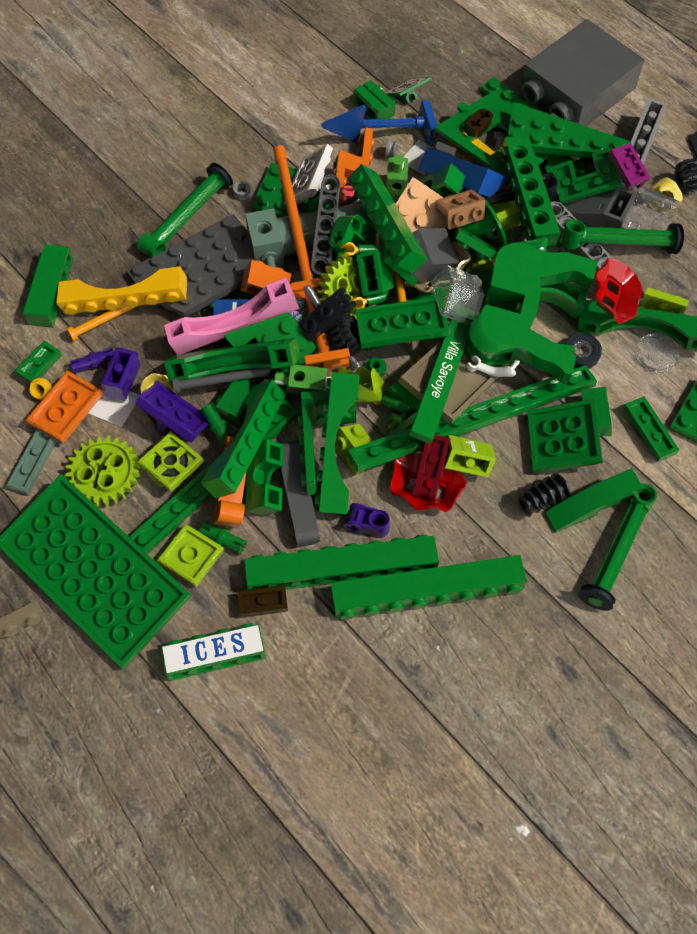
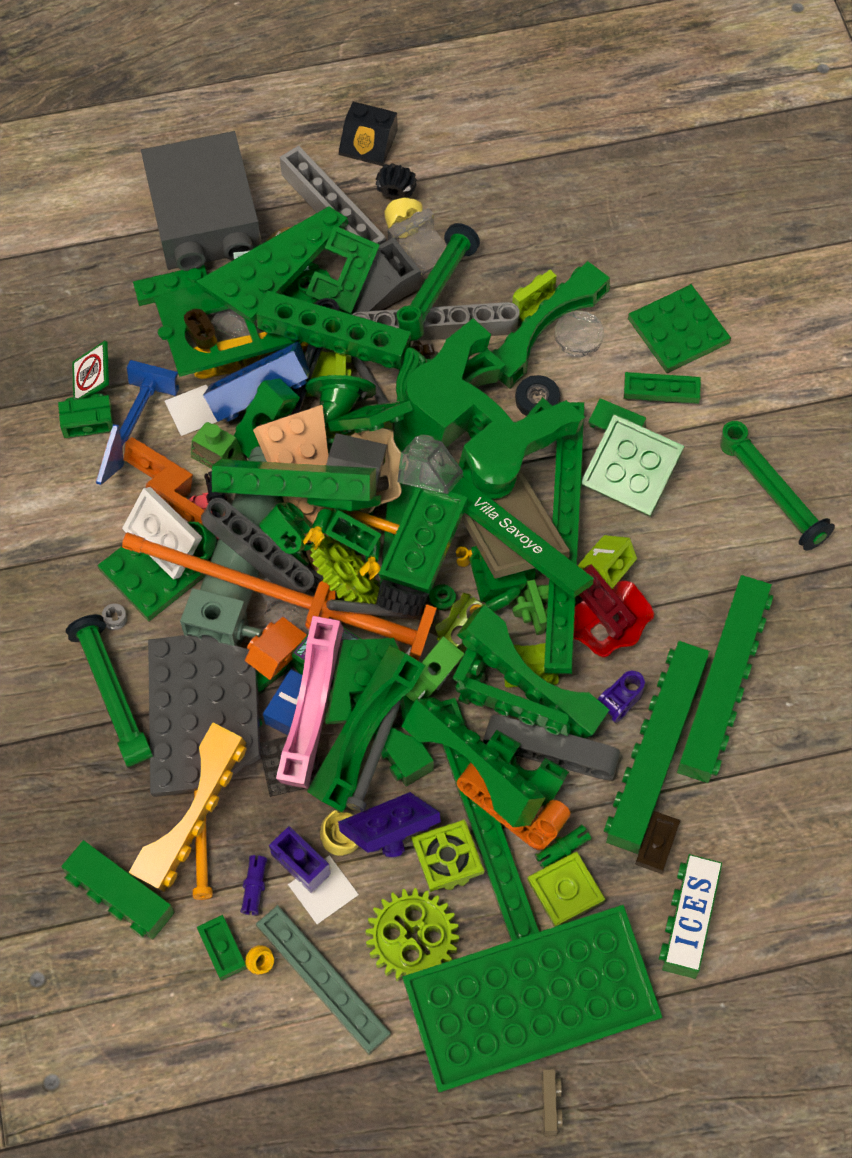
camera: 60 degrees left, 0 degrees up
(64, 407) = (304, 941): orange tile -> none
(216, 424) = (425, 788): green pin -> none
(326, 314) = (374, 604): black hinge -> none
(391, 148) = (164, 433): light grey bush -> none
(445, 148) = (212, 380): dark grey tile -> none
(462, 208) = (322, 403): medium nougat bracket -> none
(493, 371) = (527, 484): white piece -> none
(543, 491) = (682, 520): black piece -> none
(593, 500) = (714, 480): green slope -> none
(628, 290) = (511, 318): red piece -> none
(629, 166) = (368, 224): magenta bracket -> none

